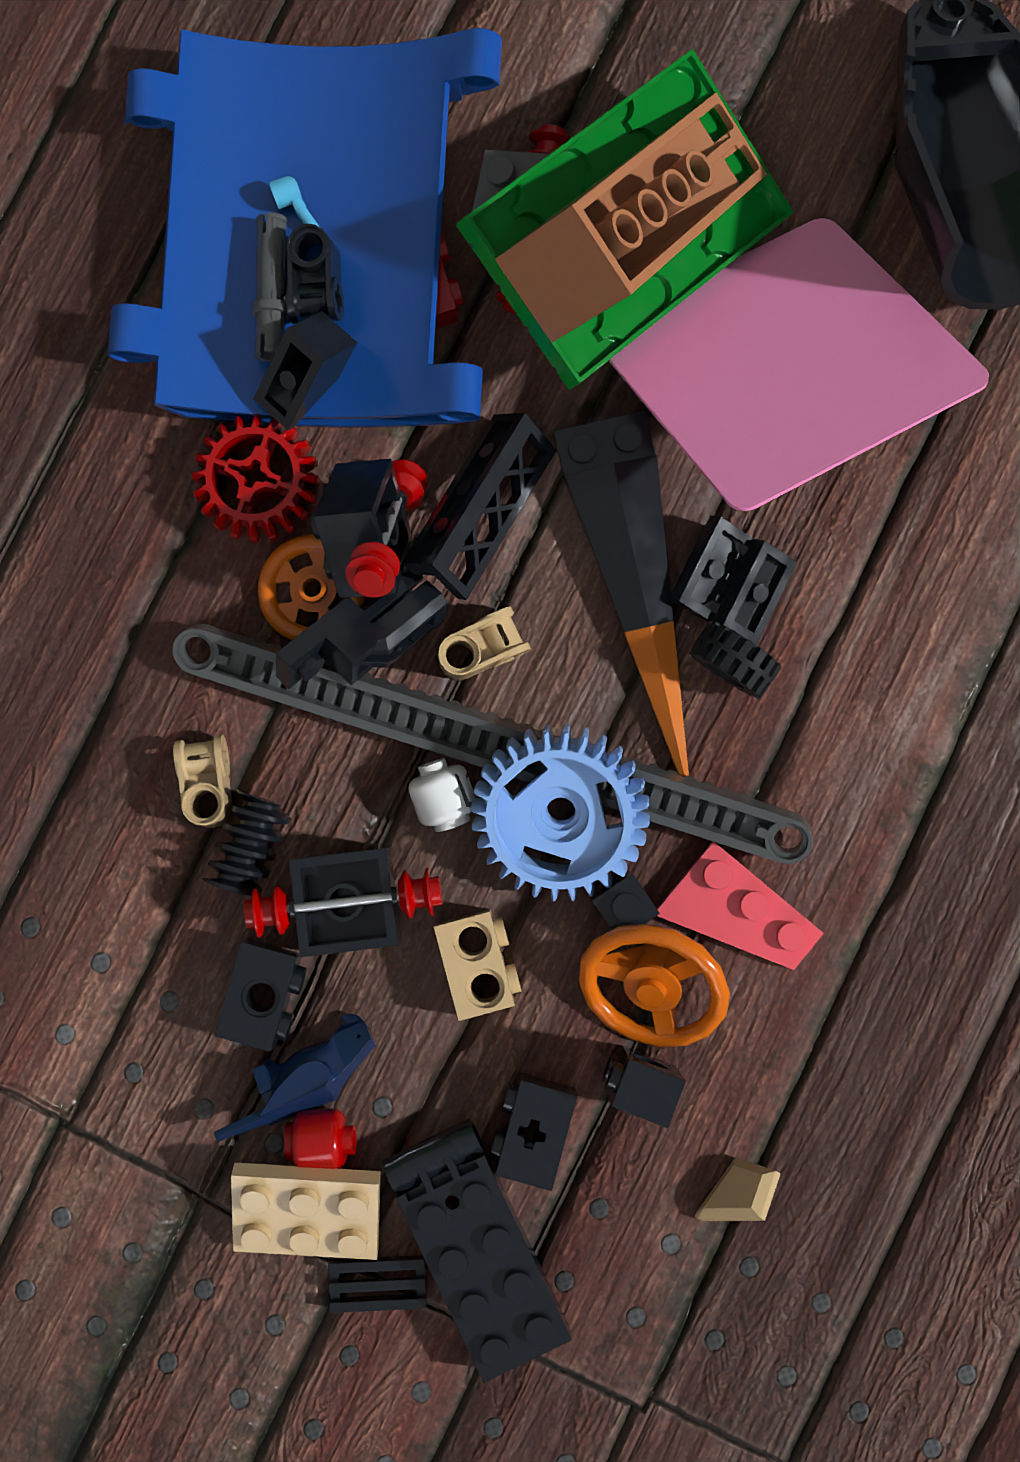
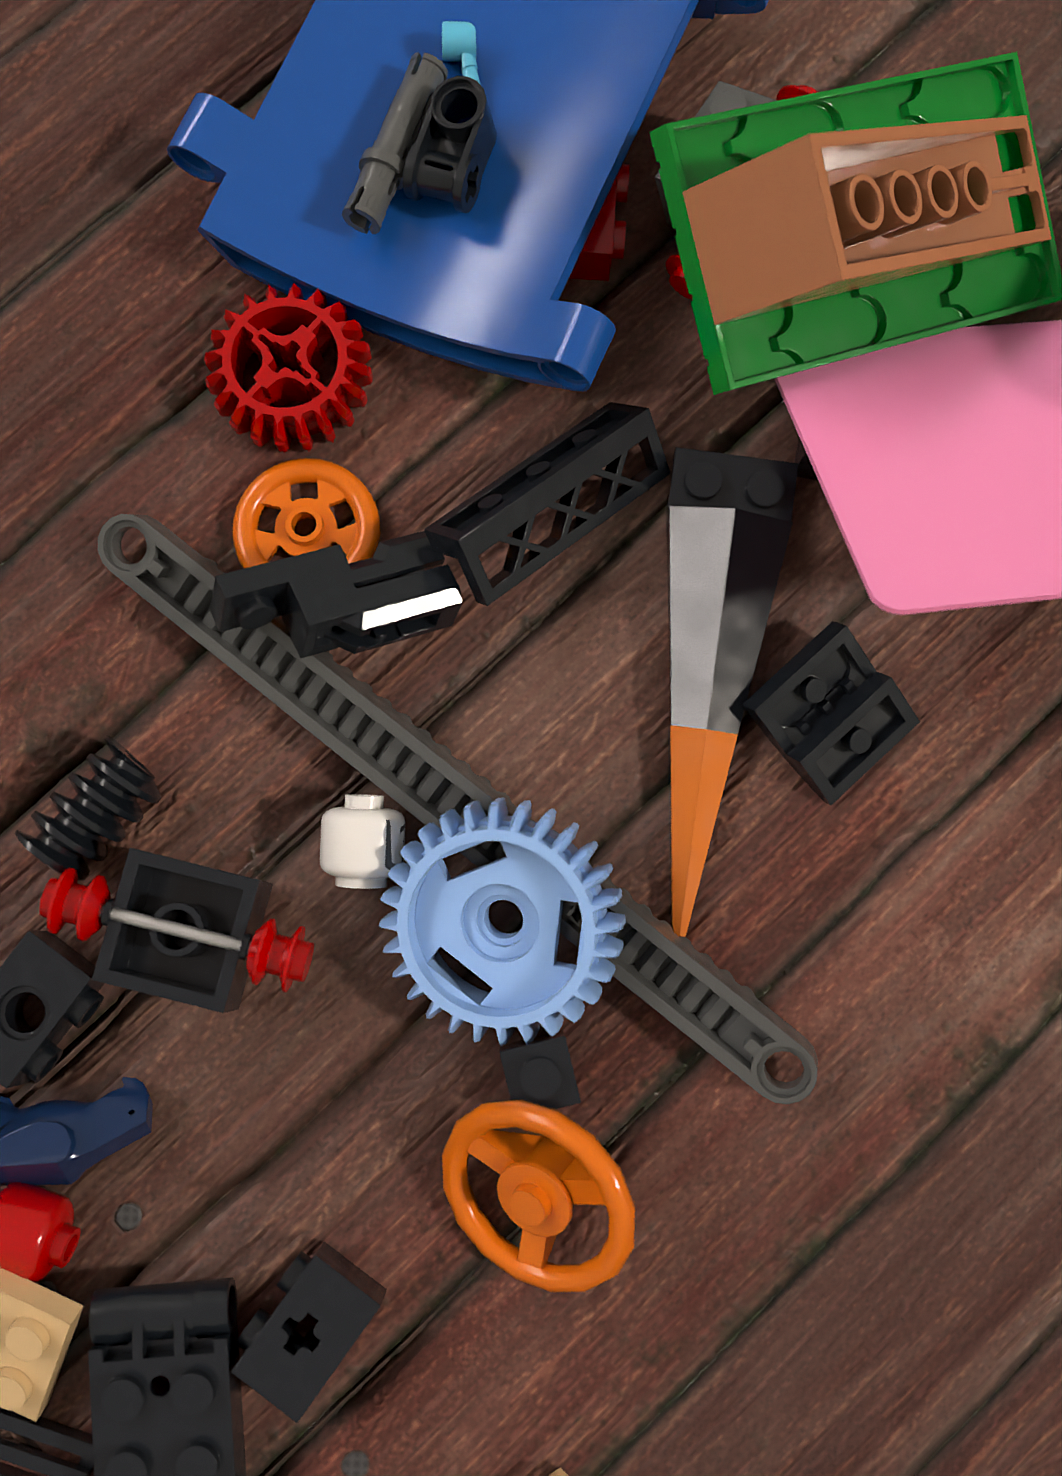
camera: 15 degrees right, 5 degrees down
(204, 777) = (75, 697): tan piece -> none
(304, 368) = (396, 248): black slope -> none
(367, 524) = (397, 465): black brick -> none
(464, 966) = (303, 1072): tan brick -> none
(485, 644) = (490, 674): tan piece -> none
(643, 1085) = (472, 1328): black brick -> none
(735, 659) = (800, 811): black tyre -> none
(738, 909) = (684, 1134): coral wing -> none

